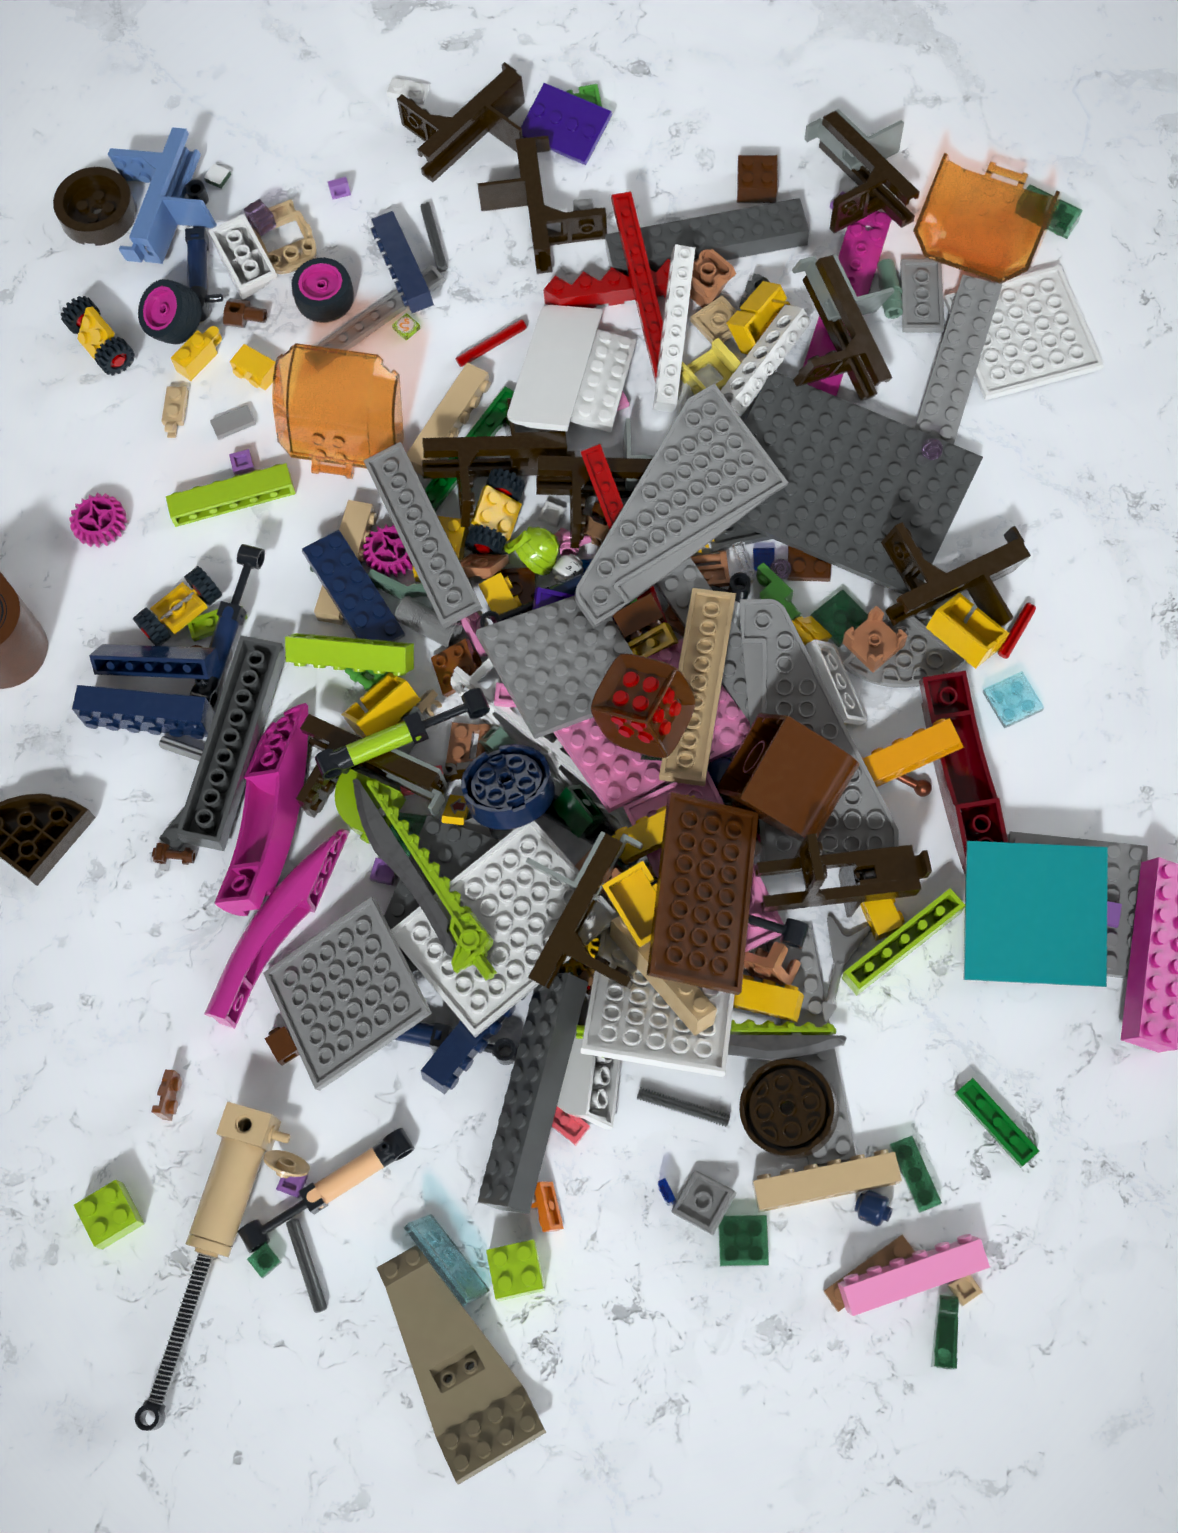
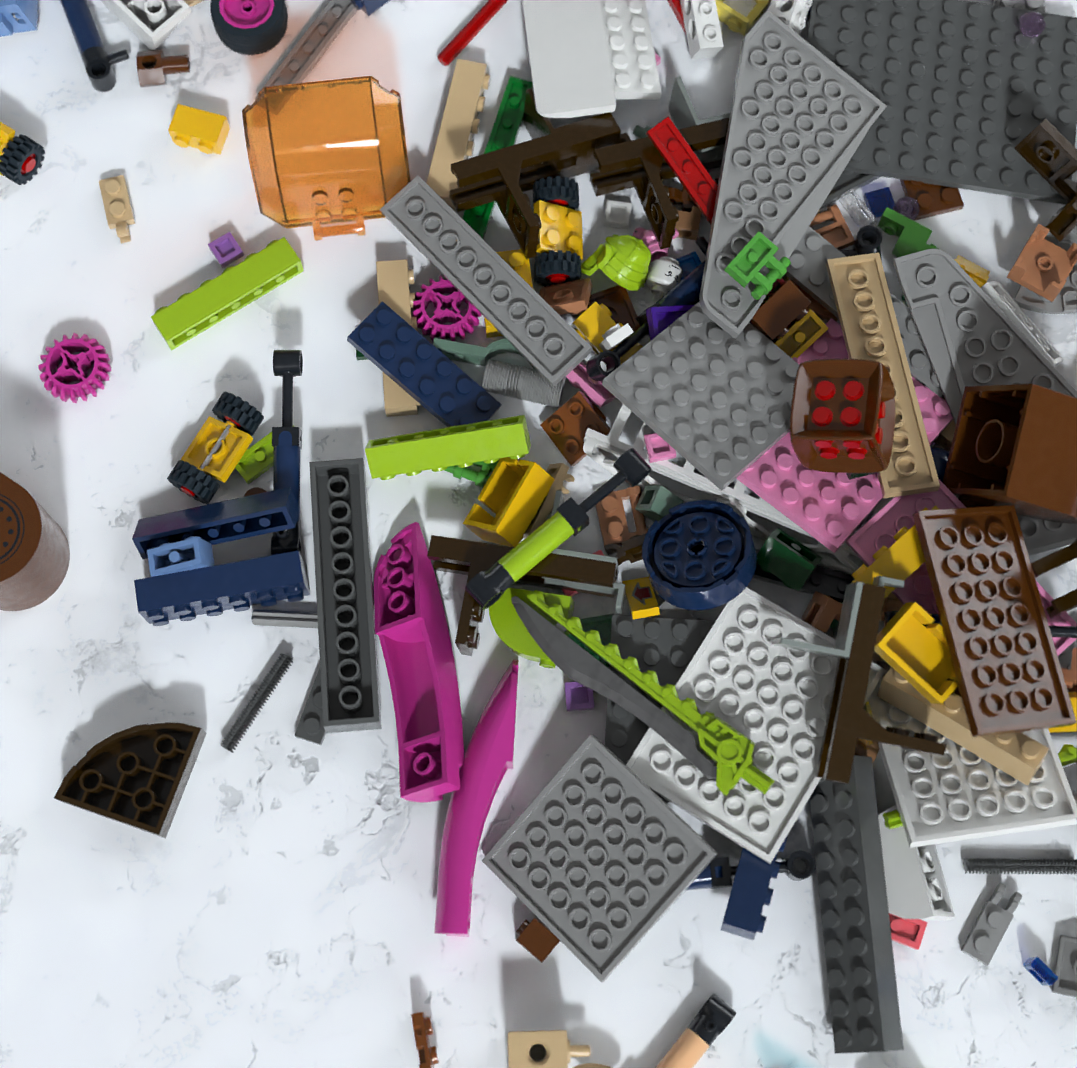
camera: 25 degrees left, 5 degrees up
(118, 677) = (180, 556): none -> medium blue brick
(140, 805) = (256, 702): none -> dark grey axle
(162, 853) = (305, 752): reddish brown bar -> none
(169, 311) = (72, 87): black wheel -> none
(196, 352) = (121, 130): yellow brick -> none
(232, 422) = (195, 203): light grey tile -> none
(406, 326) = (363, 33): tile -> none
(502, 602) = (615, 336): none -> white plate
(547, 1207) = (918, 1039): orange plate -> none
(626, 569) = (751, 259): none -> bright green plate
(641, 1146) = (990, 926): none -> light grey hinge
(840, 615) = (992, 247): clear green plate -> none

